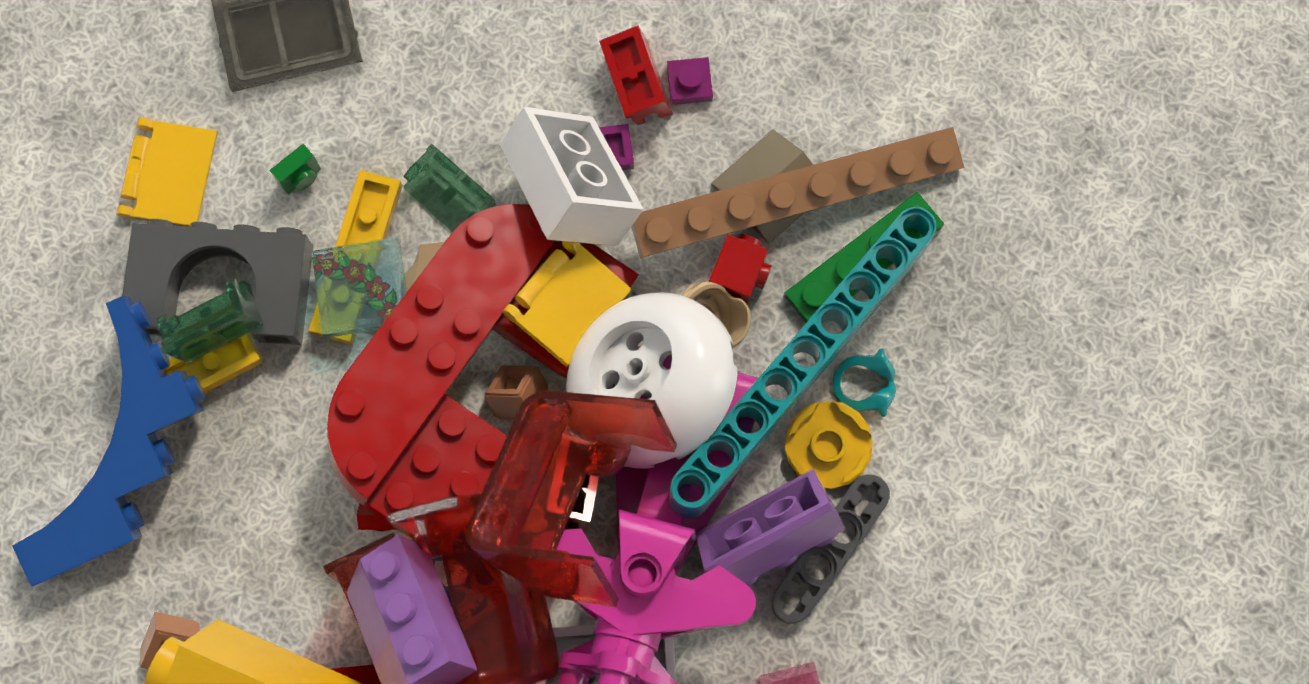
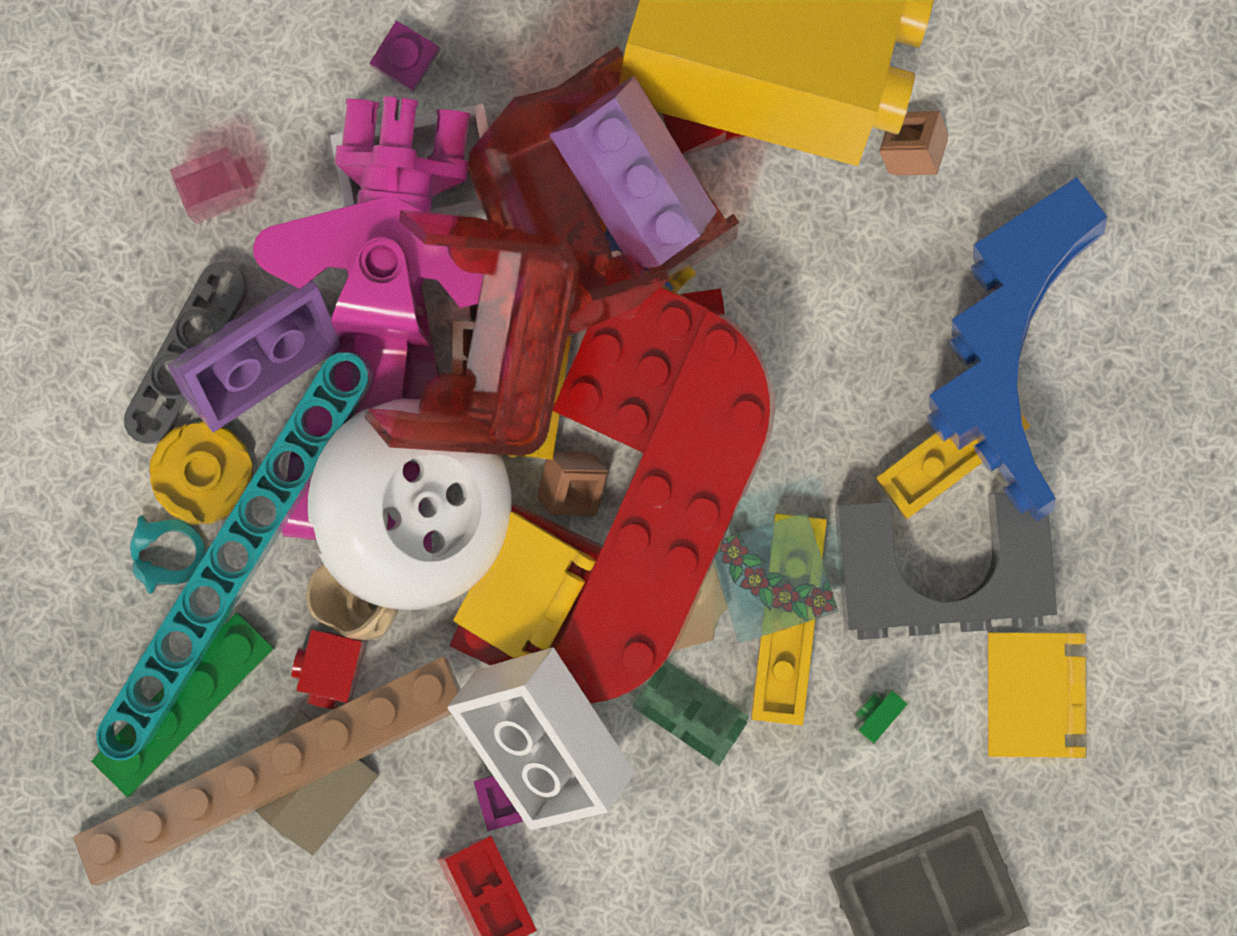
camera: 170 degrees right, 10 degrees up
(211, 323) = (938, 507): clear green hinge -> none
(689, 81) = (421, 903): magenta plate -> none

